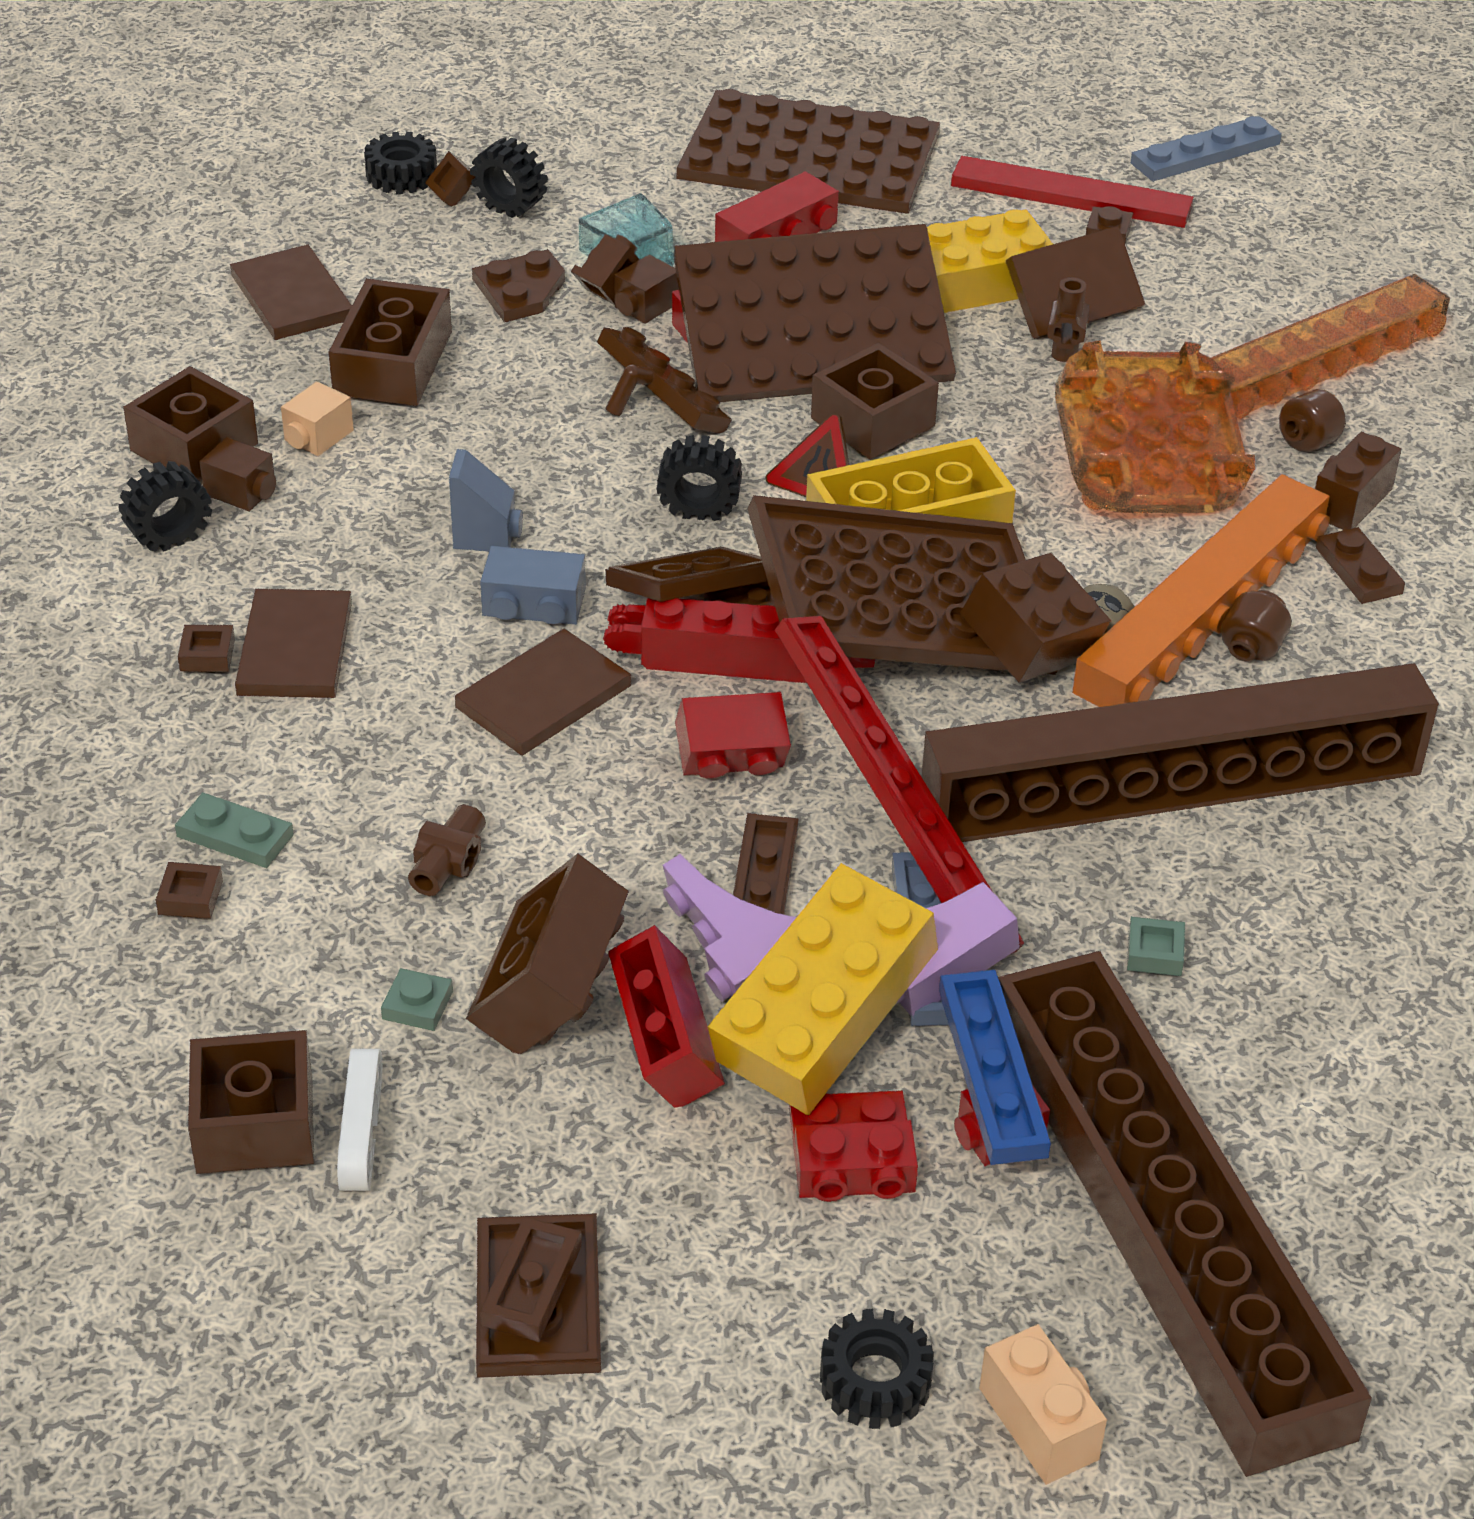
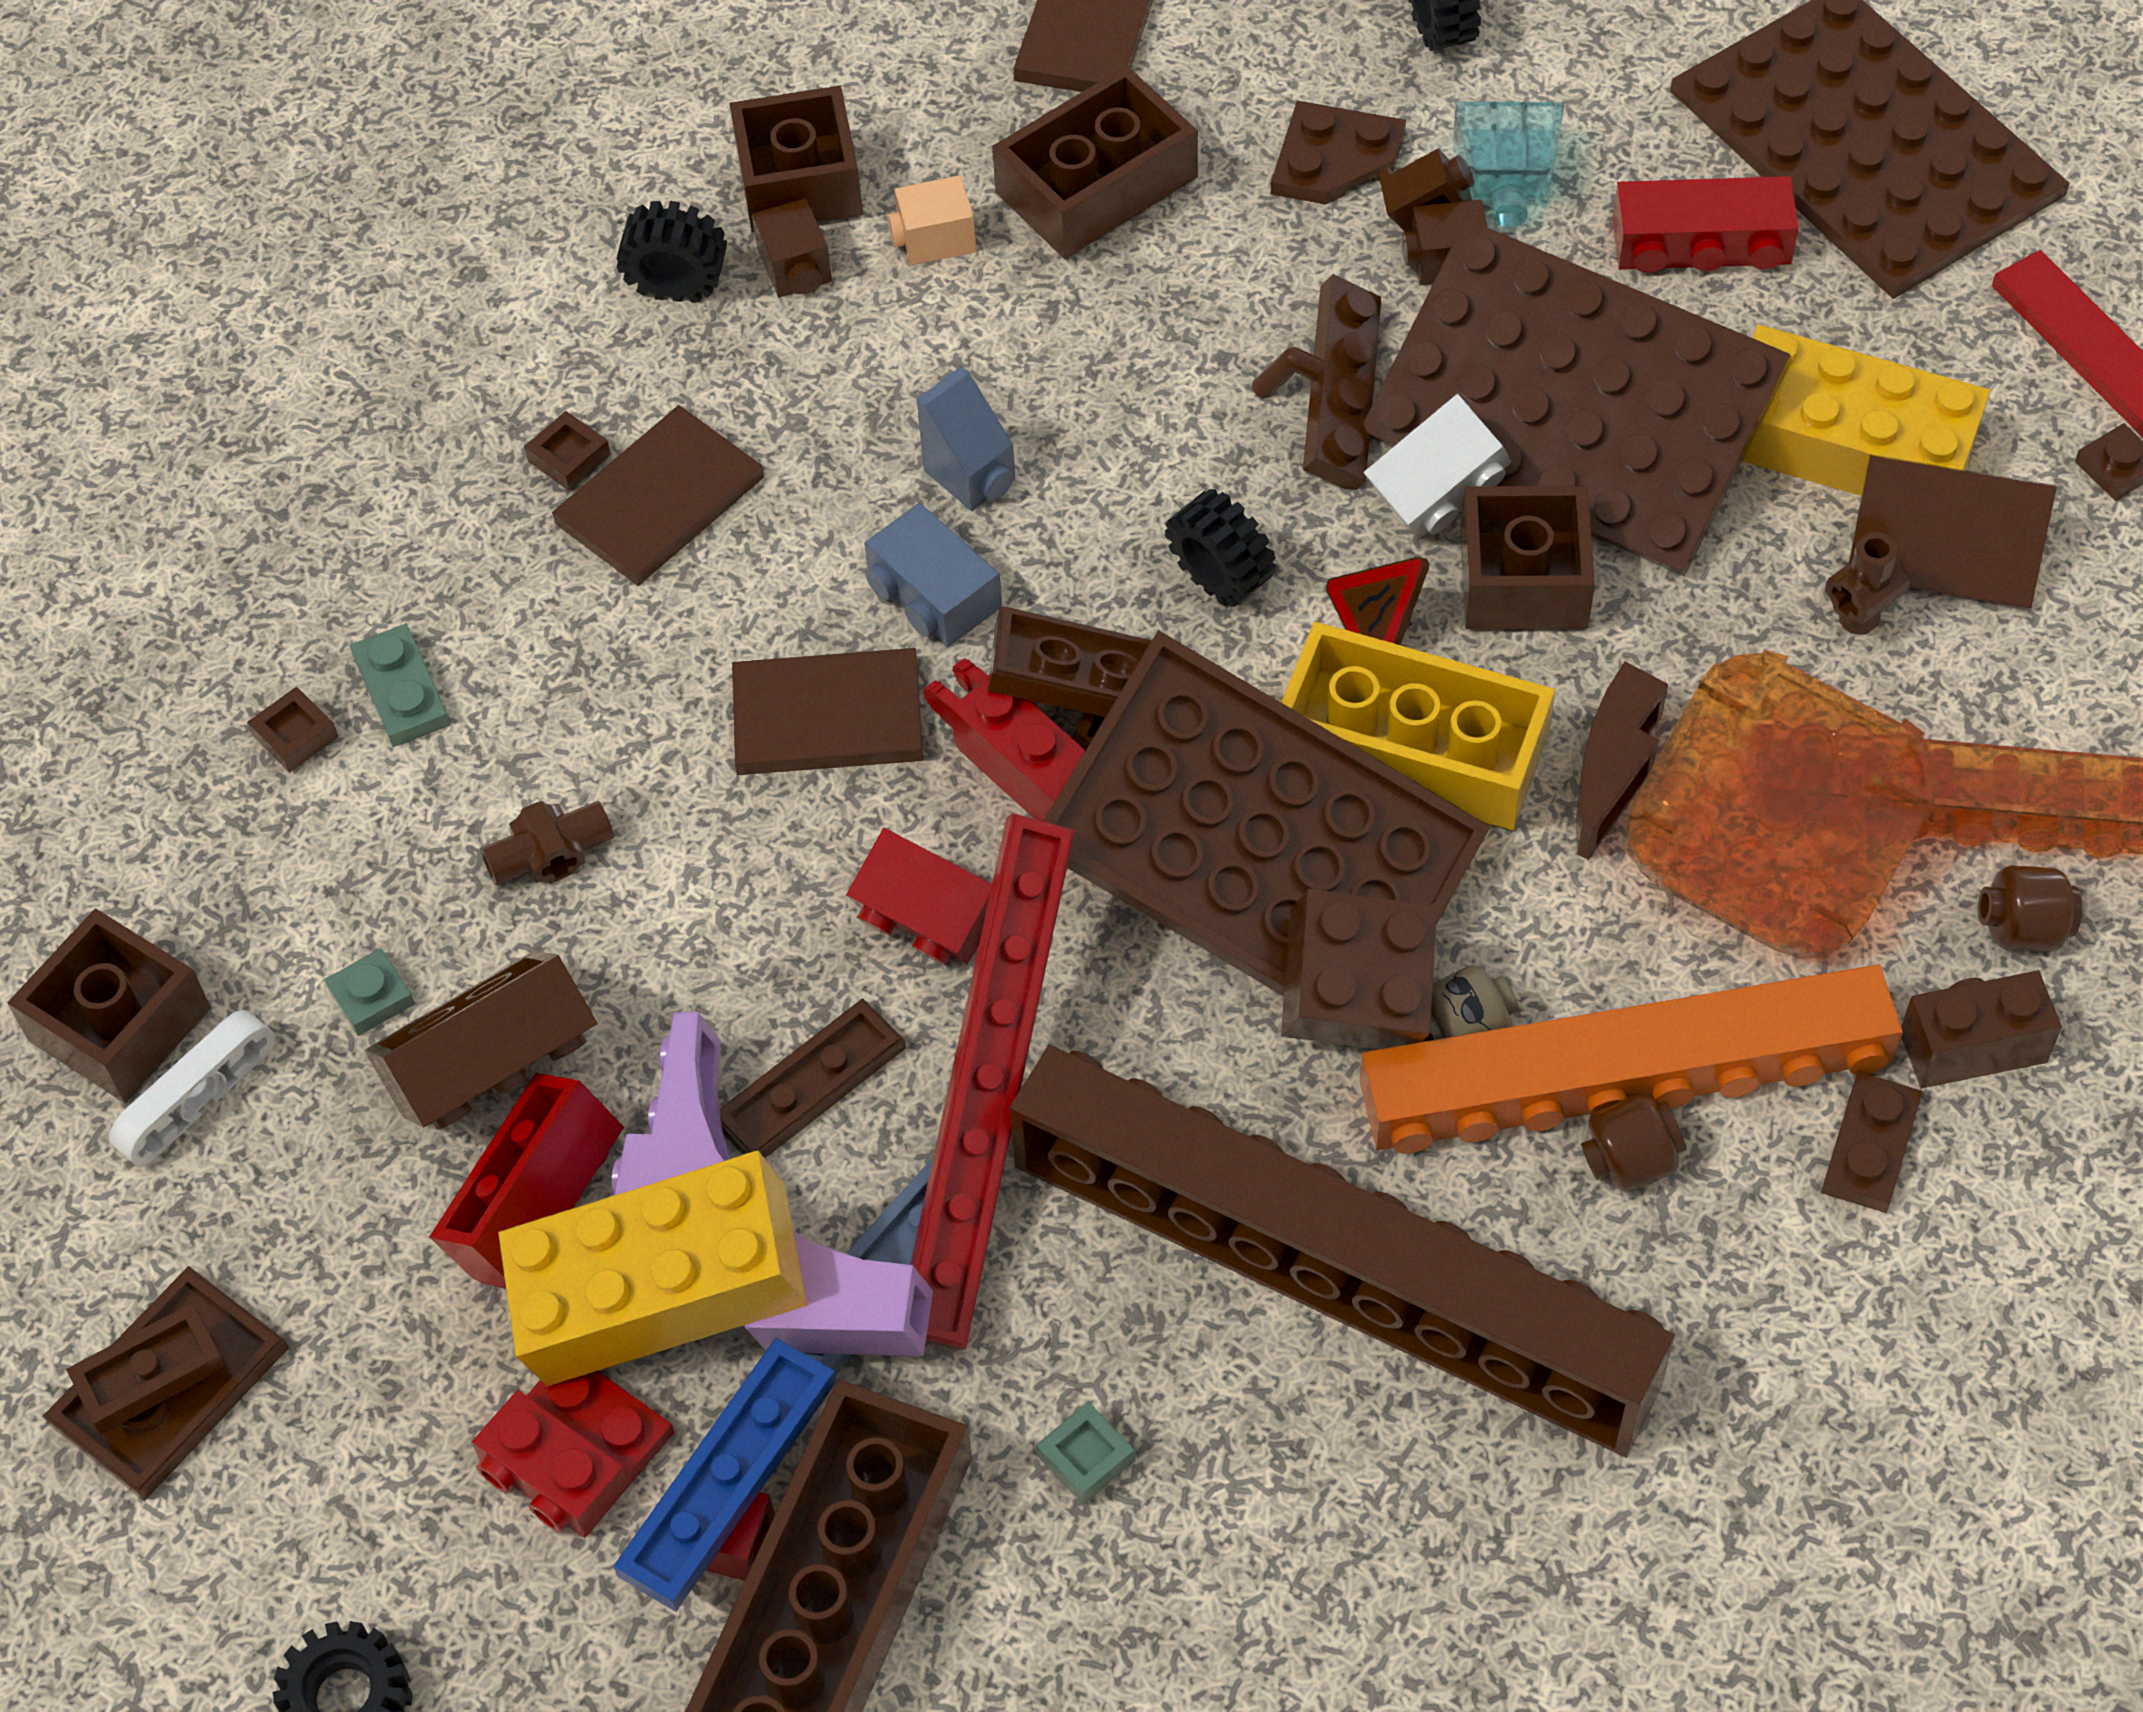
camera: 45 degrees right, 15 degrees up
(778, 382) = (1433, 464): none -> white brick
(1028, 466) = (1617, 753): none -> reddish brown slope

